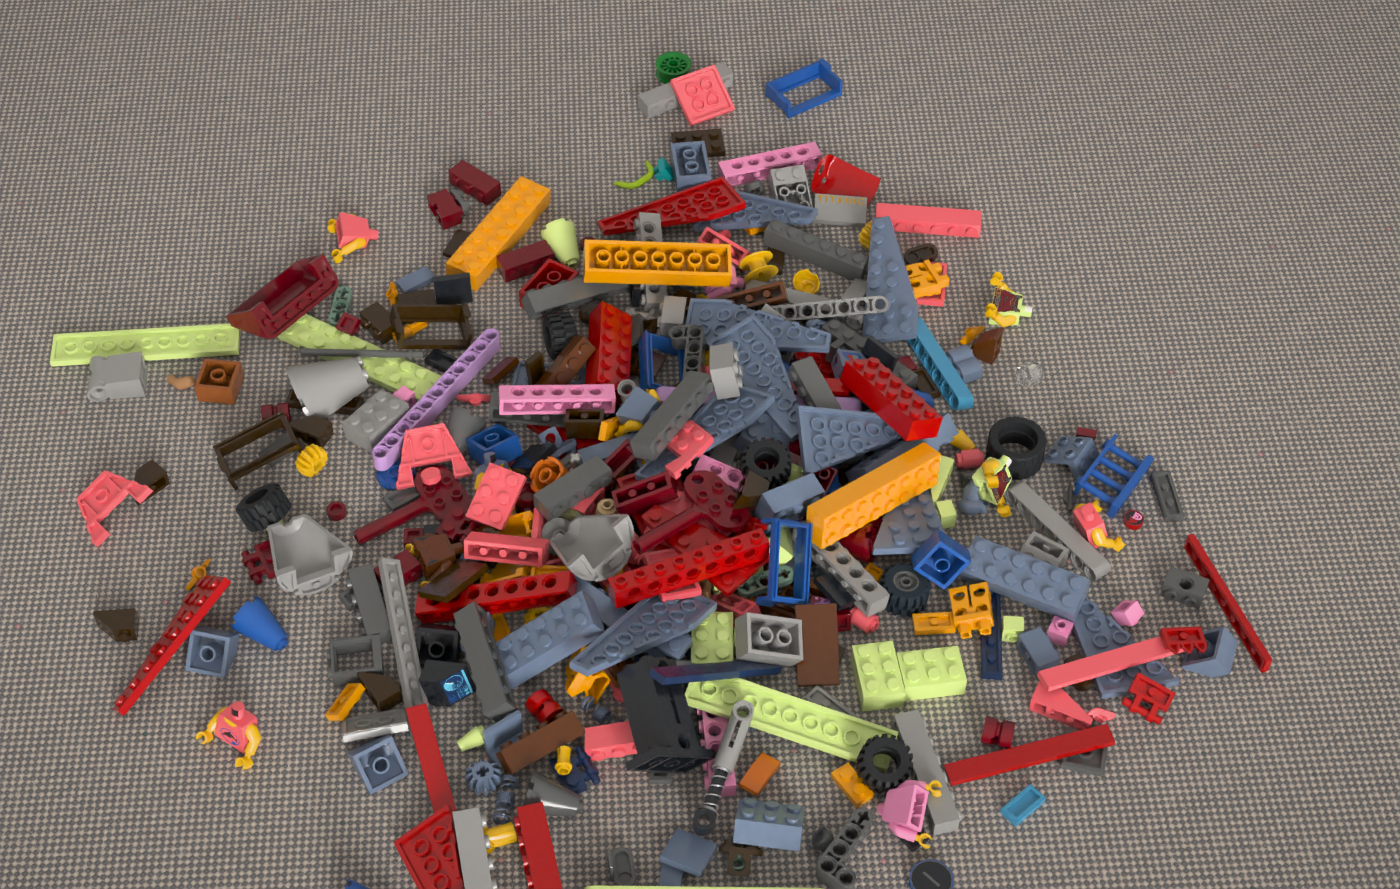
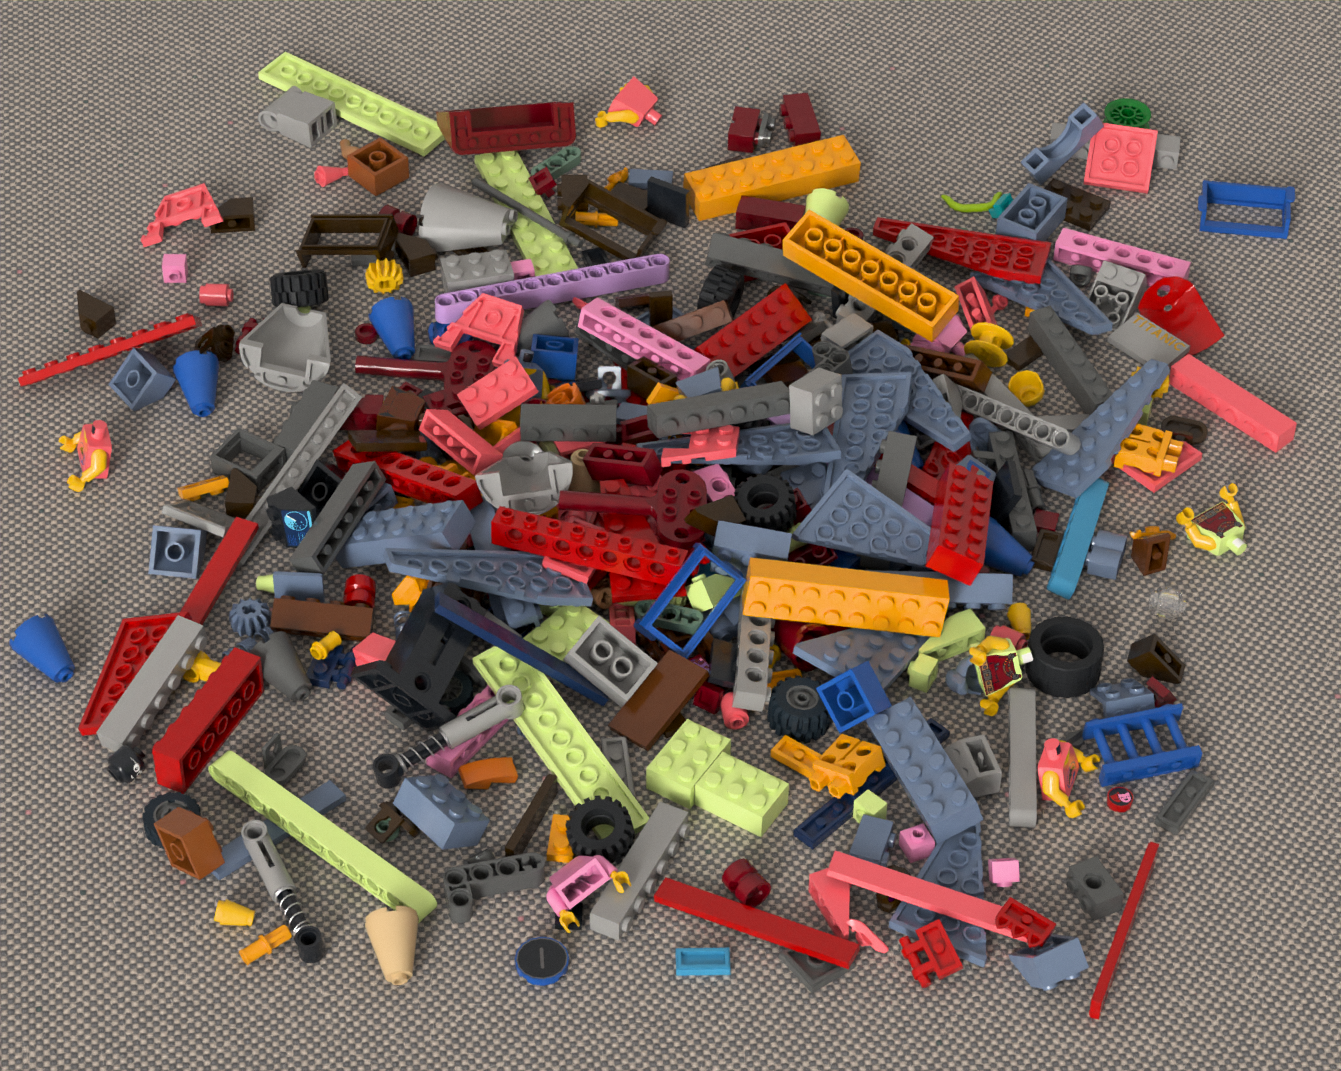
camera: 40 degrees right, 5 degrees down
(144, 549) = (175, 268): none -> bright pink plate
(183, 410) = (325, 175): none -> coral cone
(197, 550) = (216, 294): none -> coral brick
(197, 573) = (202, 313): light orange piece -> none
(239, 584) = (220, 340): none -> dark brown bracket
(360, 493) = (395, 326): none -> blue cone
(430, 475) = (471, 348): coral tile -> none
(665, 106) = (1080, 128): none -> sand blue arch
(688, 852) = (352, 790): sand blue tile -> none
(823, 787) = (532, 817): none -> dark brown tile
(1061, 416) = (1154, 658): none -> dark brown slope

